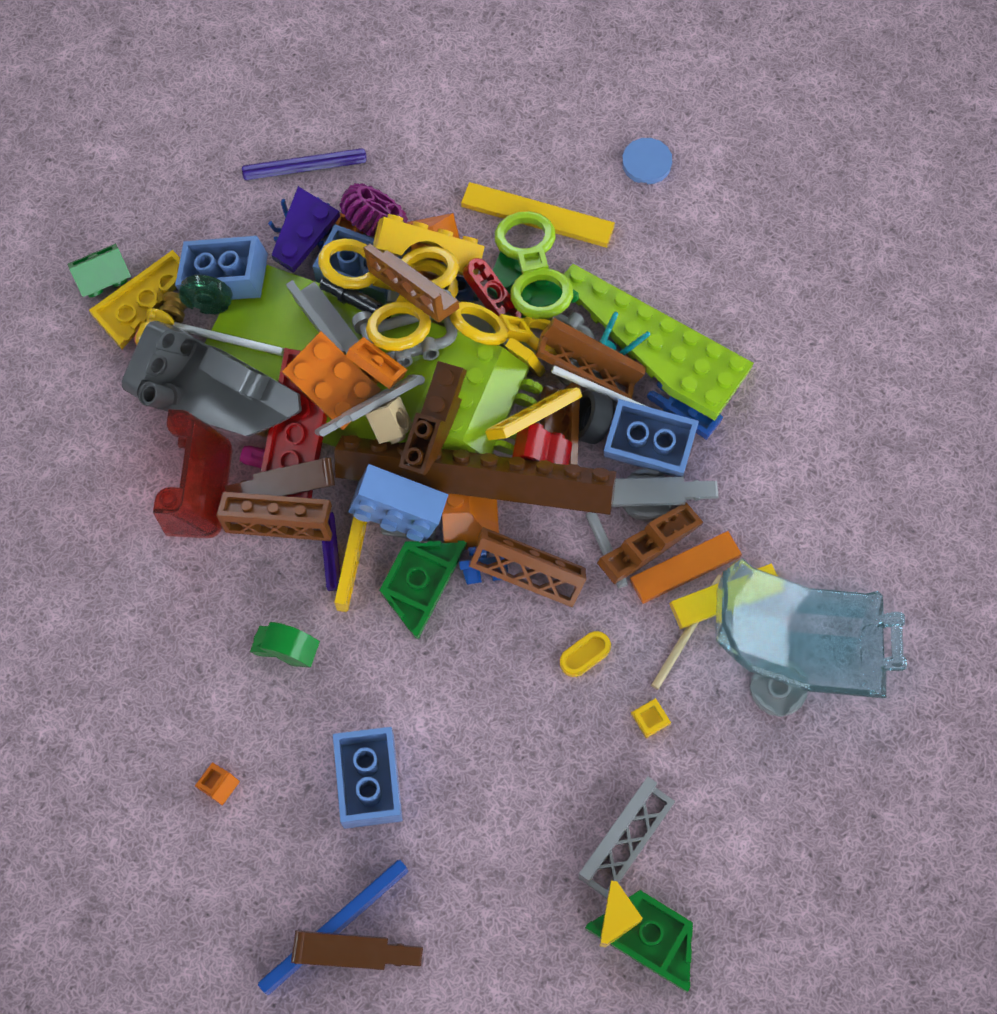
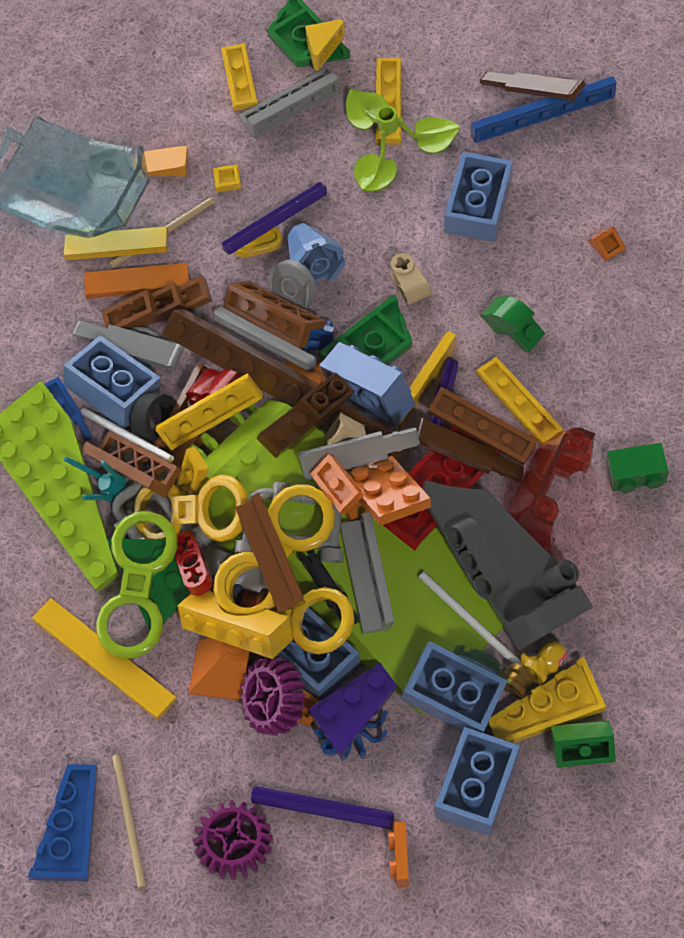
camera: 155 degrees left, 5 degrees down
(116, 535) = (637, 467): none -> green brick
(178, 209) = (477, 781): none -> medium blue brick
(224, 137) = (398, 842): none -> orange plate
(253, 570) = (519, 401): none -> yellow tile
(380, 113) = (244, 843): none -> magenta gear
(406, 655) = (408, 279): none -> tan piece
(457, 108) = (129, 823): none -> tan axle
(498, 79) = (69, 830): none -> blue wing
(517, 883) = (389, 87): none -> yellow tile
(520, 649) = (316, 252): none -> medium blue cone
(521, 599) = (293, 282): none -> light grey tile
(525, 535) = (265, 339): none -> light grey axle
(534, 853) = (367, 108): none -> lime plant
(575, 679) = (274, 218): none -> dark purple axle
(698, 854) = (239, 77): none -> yellow tile
(727, 712) = (167, 161): none -> light orange slope

